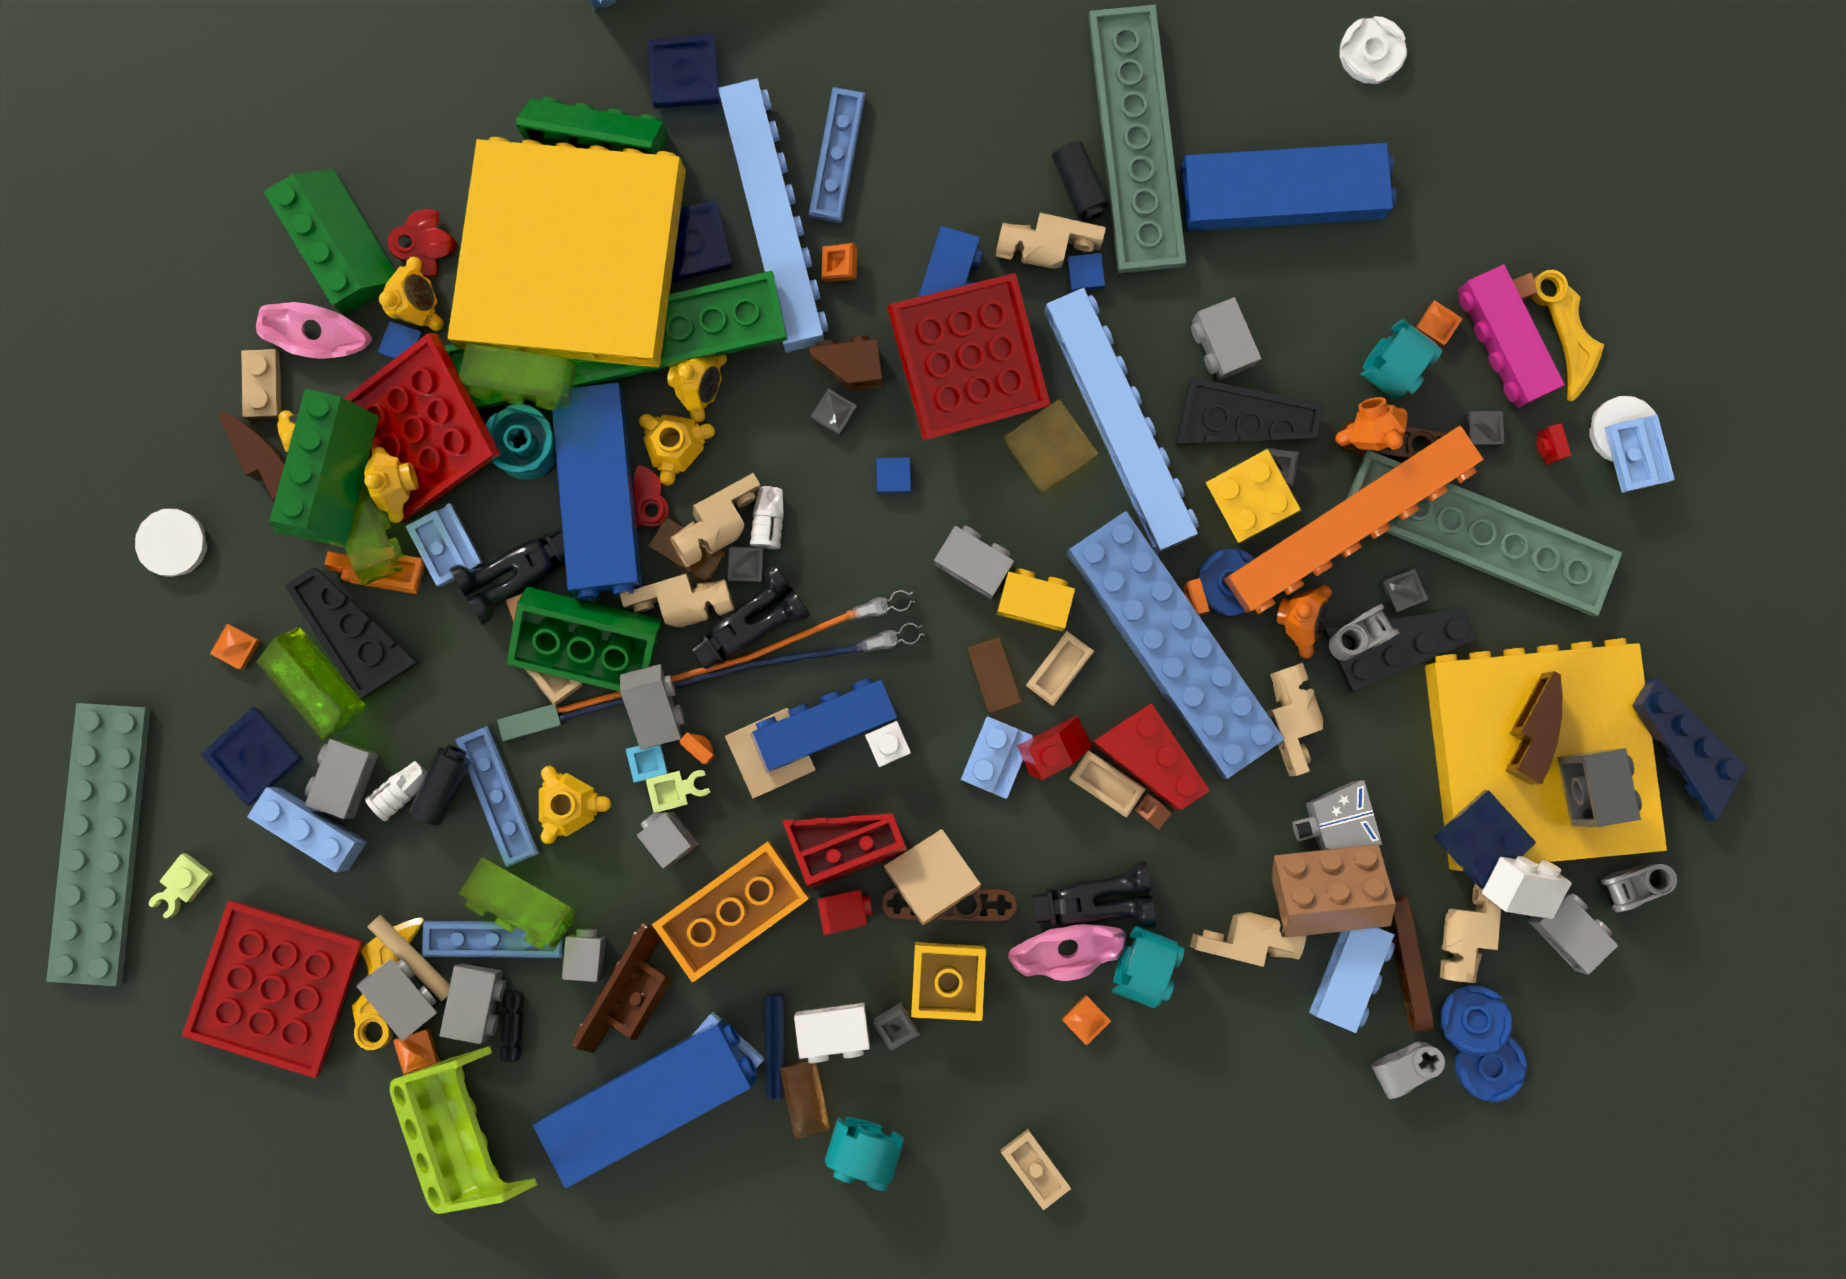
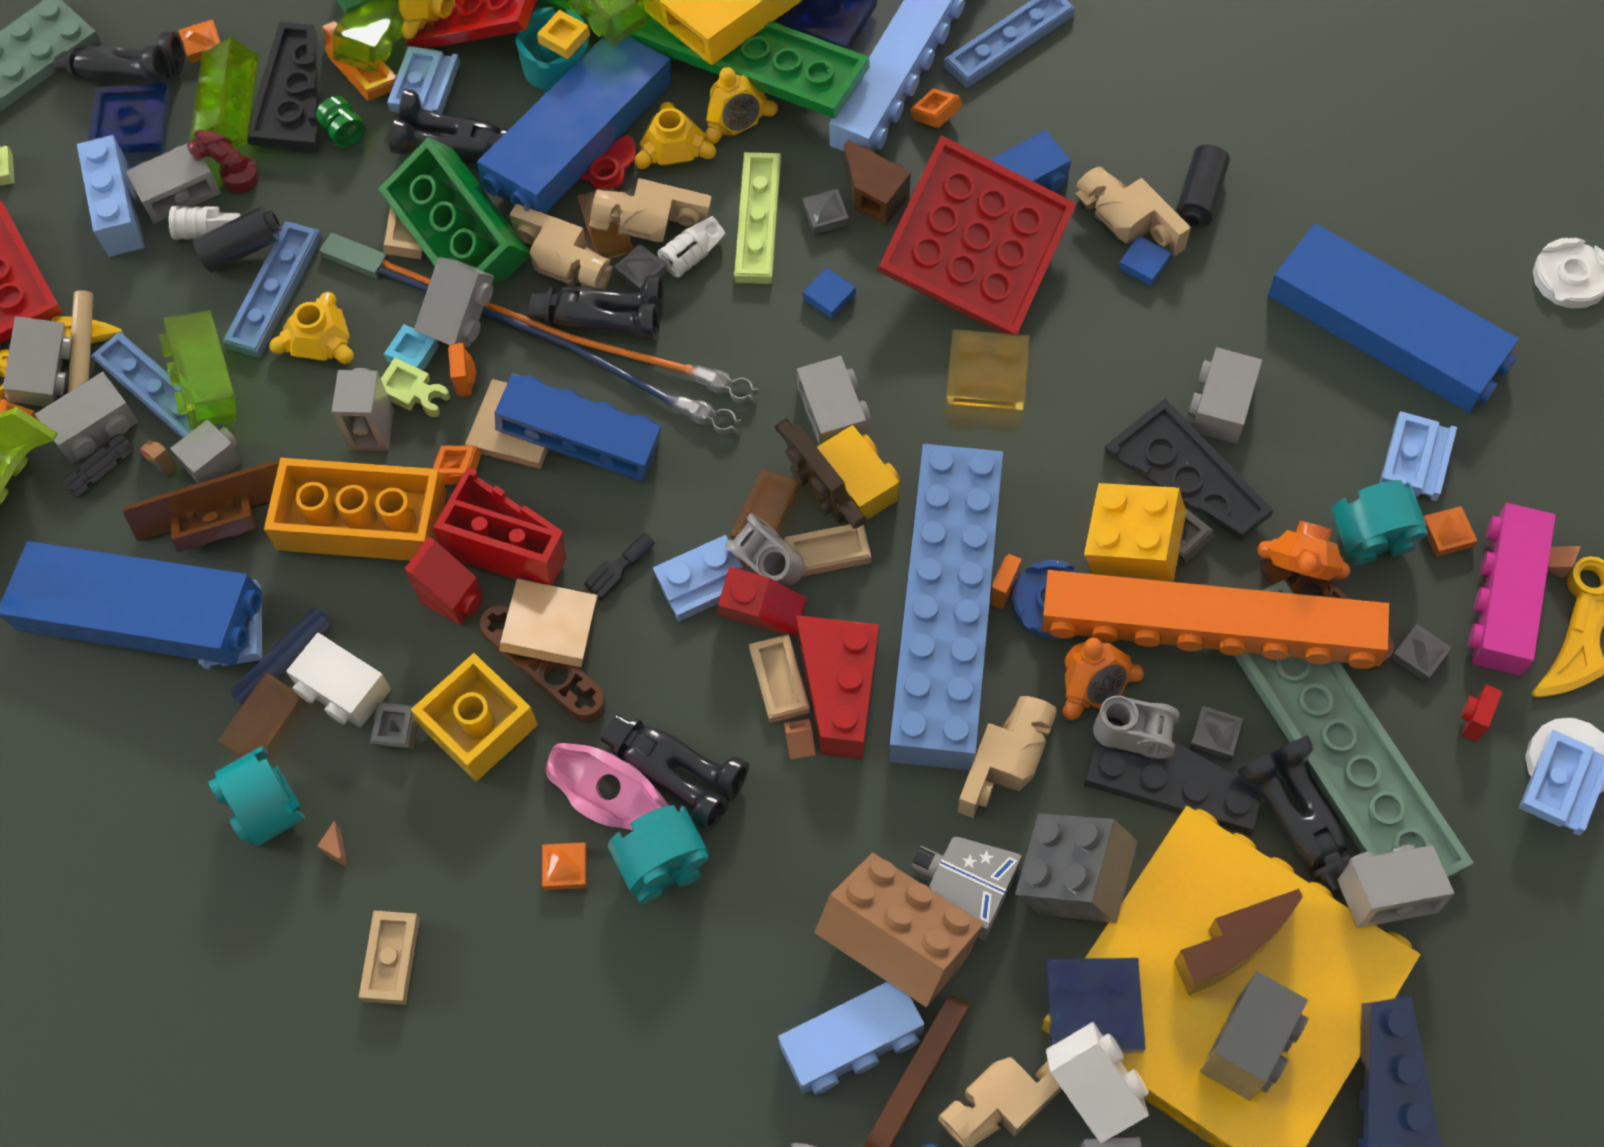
camera: 50 degrees right, 20 degrees down
(195, 719) = (102, 60): none -> black piece
(376, 730) = (236, 170): none -> dark red arm
(416, 628) = (338, 118): none -> green wheel
(532, 434) = (563, 34): none -> yellow plate
(548, 986) = (158, 457): none -> medium nougat tile
(760, 818) = (454, 460): none -> orange tile
(789, 455) = (757, 218): none -> yellowish green tile
(888, 744) = (617, 487): white brick -> none
(933, 1134) = (332, 844): none -> nougat piece
(934, 805) = (611, 573): none -> black piece
(1003, 626) = (813, 469): none -> dark brown plate
(1027, 710) = (762, 547): none -> light grey piece
(1120, 420) = (1066, 394): light blue brick -> none
(1137, 139) = (1281, 194): sand green plate -> none
(1250, 940) = (781, 920): tan plate -> none
(1380, 283) = (1419, 454): none -> light blue plate
(1403, 760) = (1077, 867): none -> dark grey brick
(1516, 610) = (1314, 834): none -> black piece
(1598, 614) = (1395, 885): none -> light grey brick

